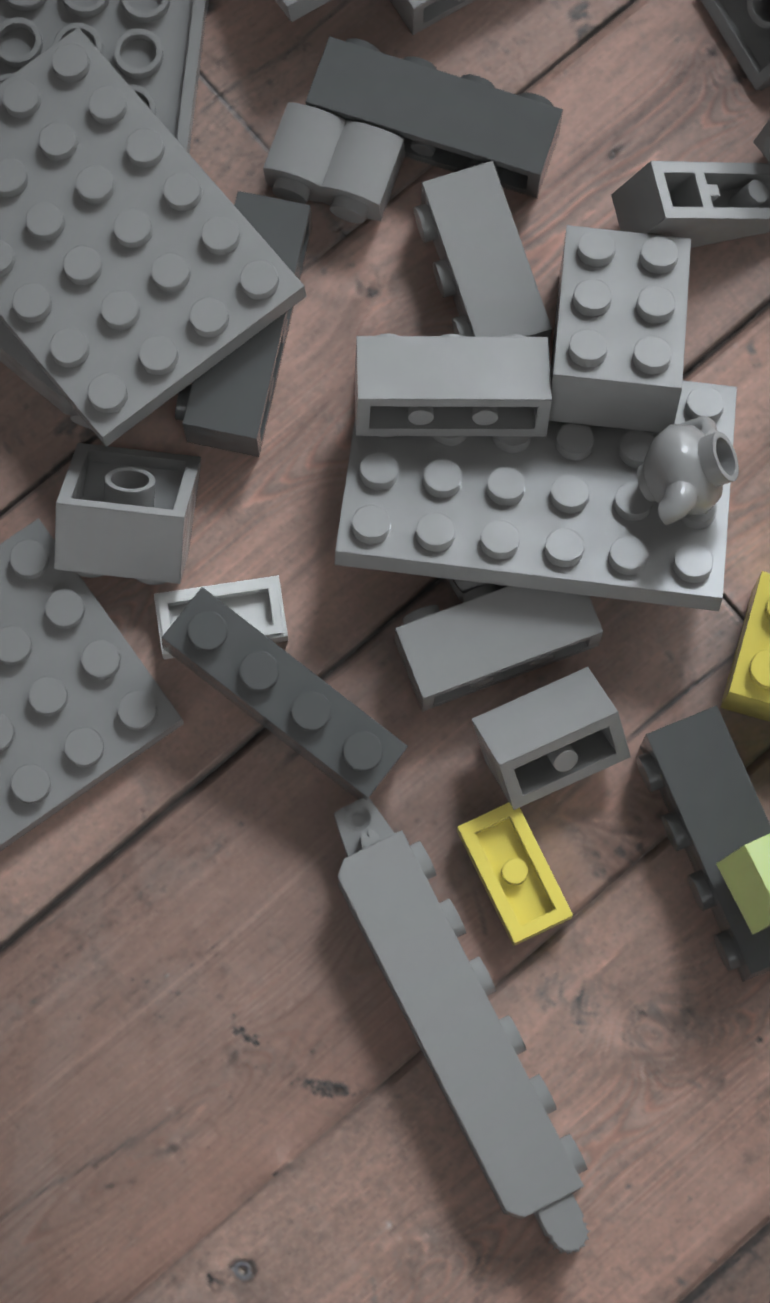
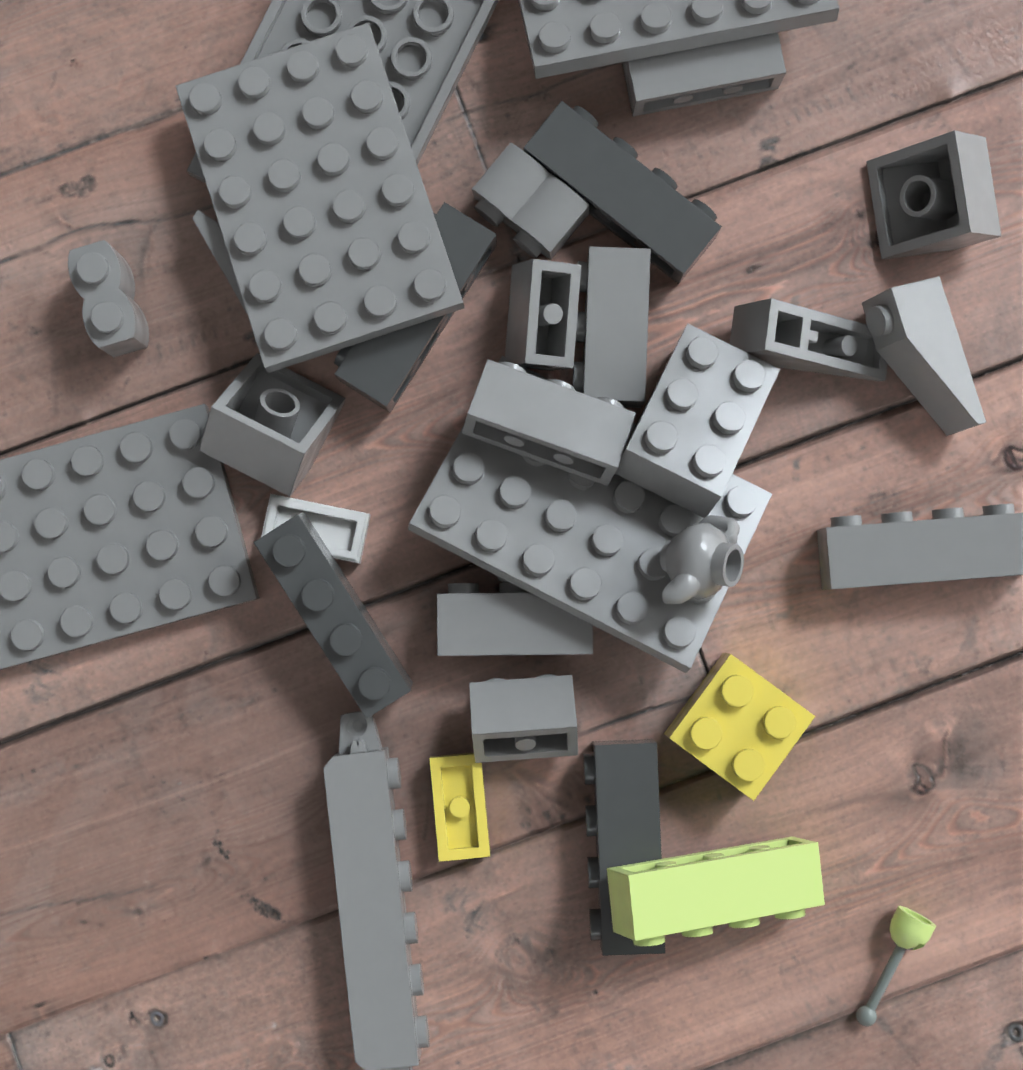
camera: 25 degrees right, 10 degrees up
(397, 272) = (543, 314): none -> light grey brick

